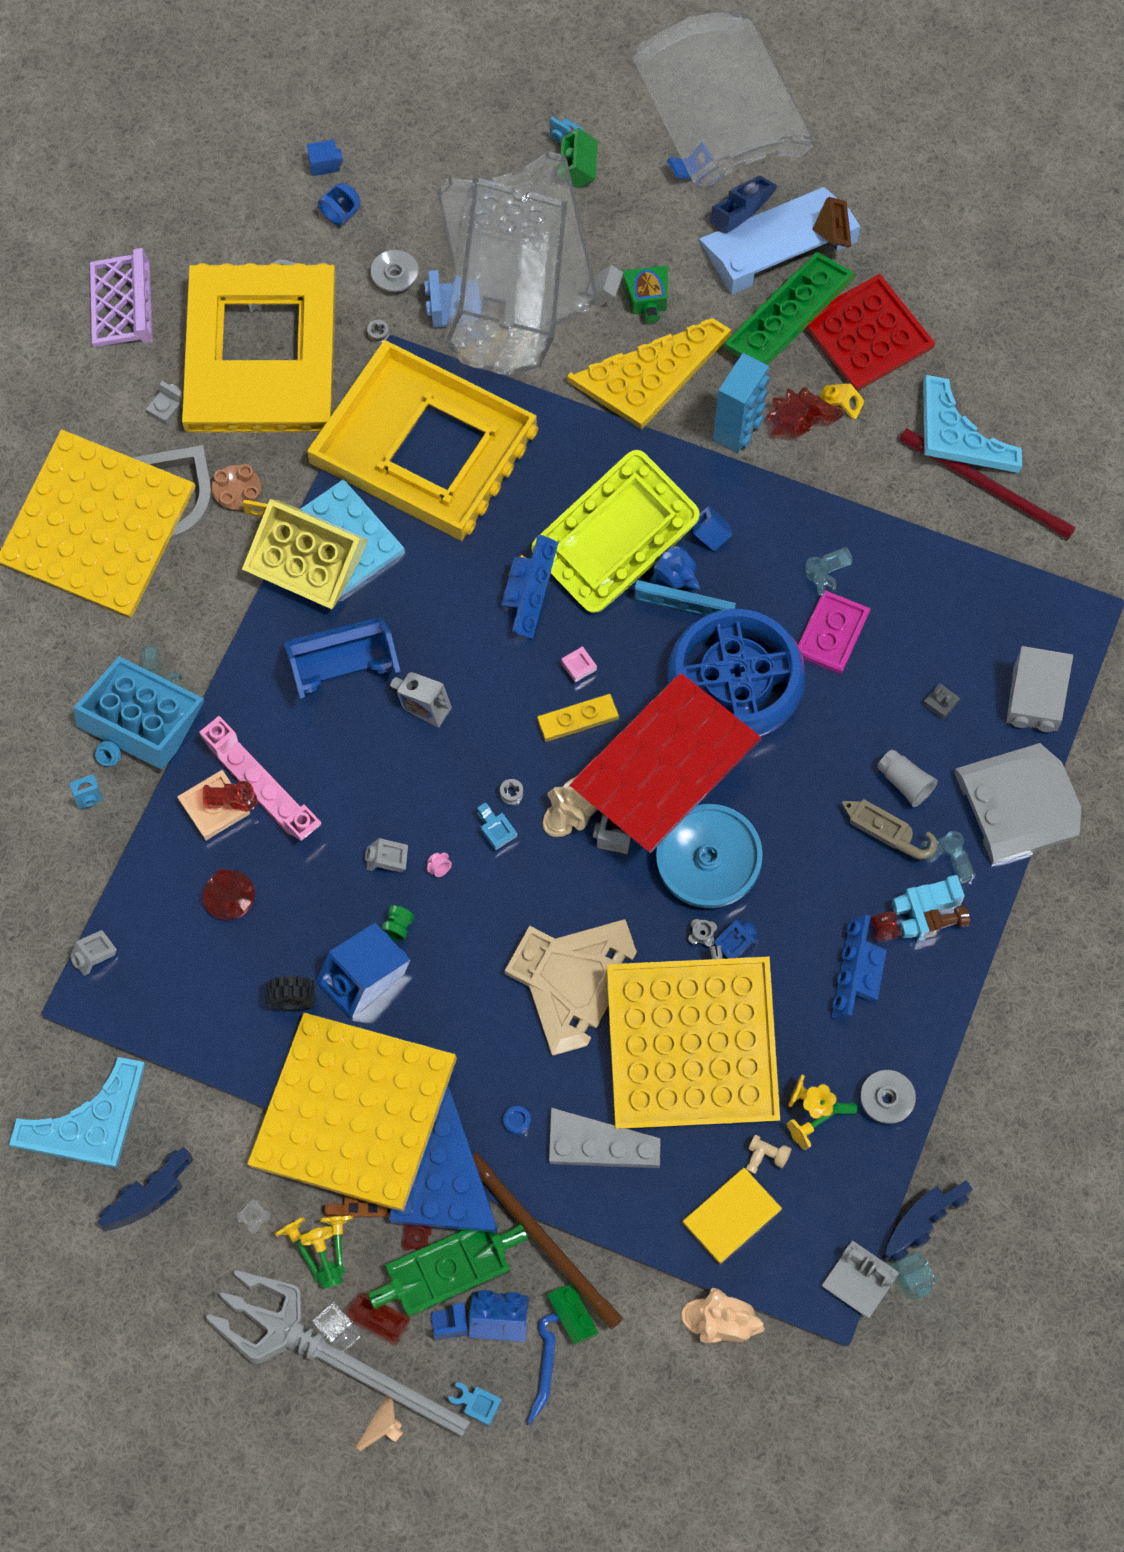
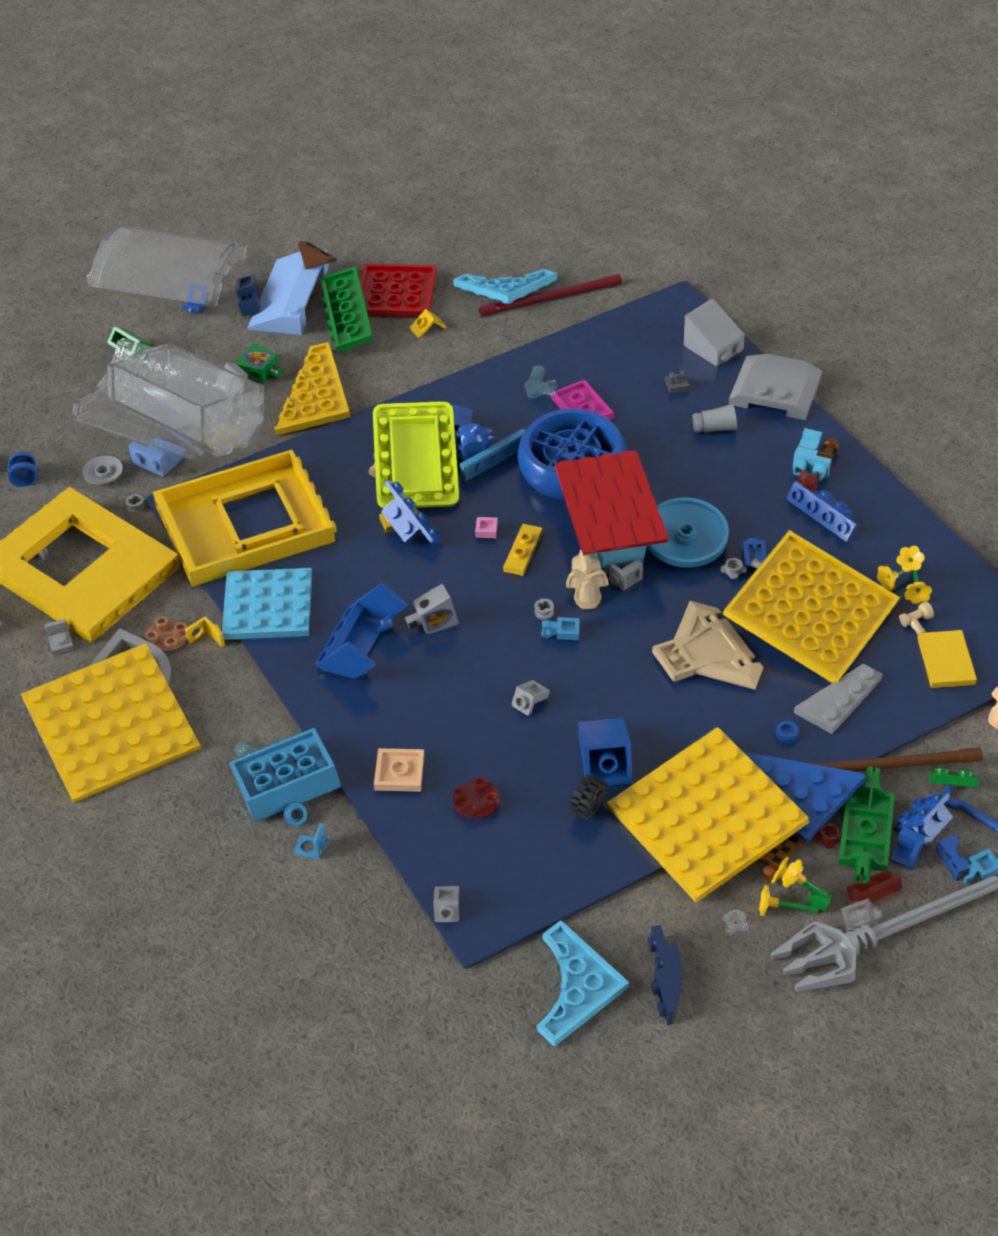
camera: 50 degrees left, 20 degrees down
(230, 796) = (409, 747): clear red connector -> none
(243, 767) = (410, 737): bright pink slope -> none
(304, 553) = (264, 611): light yellow slope -> none
(381, 1424) = (957, 928): light nougat piece -> none
(397, 922) = (584, 711): green wheel -> none
(439, 864) = (561, 672): bright pink plate -> none
(476, 1359) = (949, 845): none -> blue piece
(558, 129) = (100, 344): dark azure bracket -> none
(741, 403) = (393, 349): dark azure brick -> none
(799, 412) = (417, 340): clear red head -> none
(886, 828) = (740, 447): dark tan plate -> none
(888, 1084) = (927, 538): light grey dish -> none
(953, 845) = (779, 426): clear light blue bar -> none

